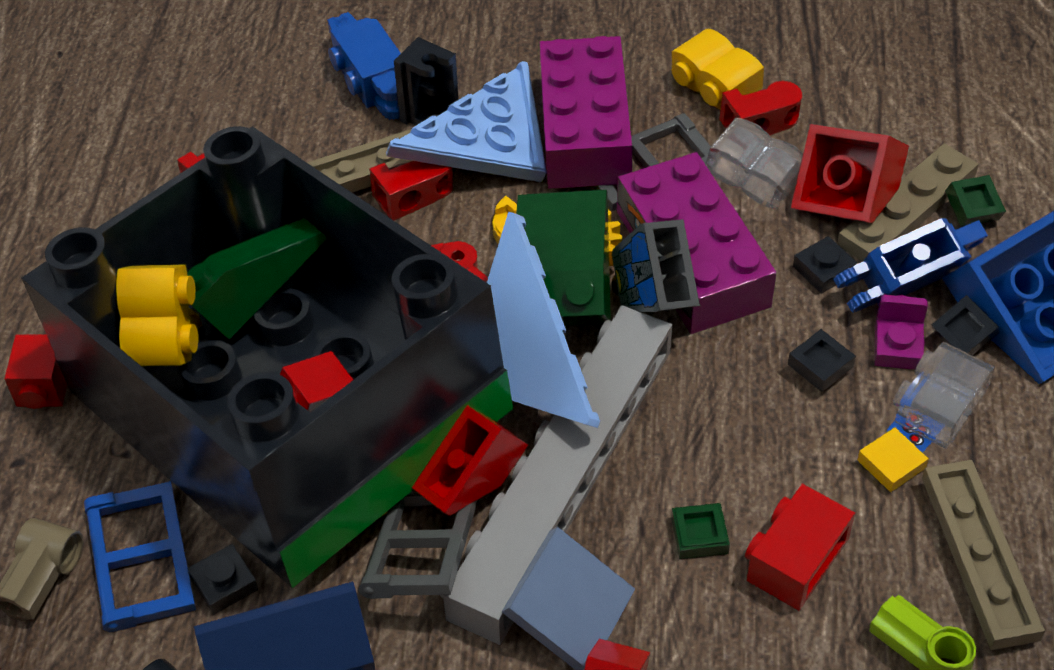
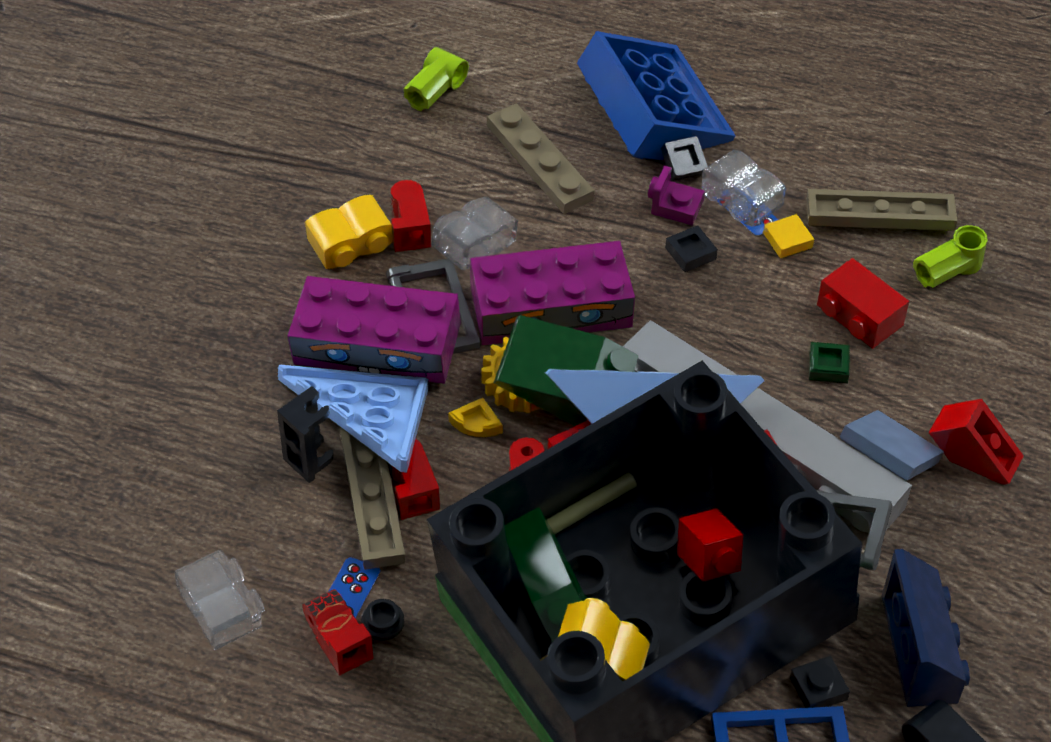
camera: 80 degrees left, 0 degrees up
(239, 81) = (219, 598): none -> clear brick
(367, 61) = (234, 485): blue hinge -> none
(368, 296) = (591, 502): none -> olive piece
(655, 268) = (605, 307): dark grey torso -> none
(822, 263) = (588, 224): black plate -> none
(848, 173) = (517, 174): red slope -> none
(911, 261) = (620, 167): blue hinge -> none
(975, 200) = (557, 116): dark green plate -> none
(991, 92) = (439, 73): none -> lime piece

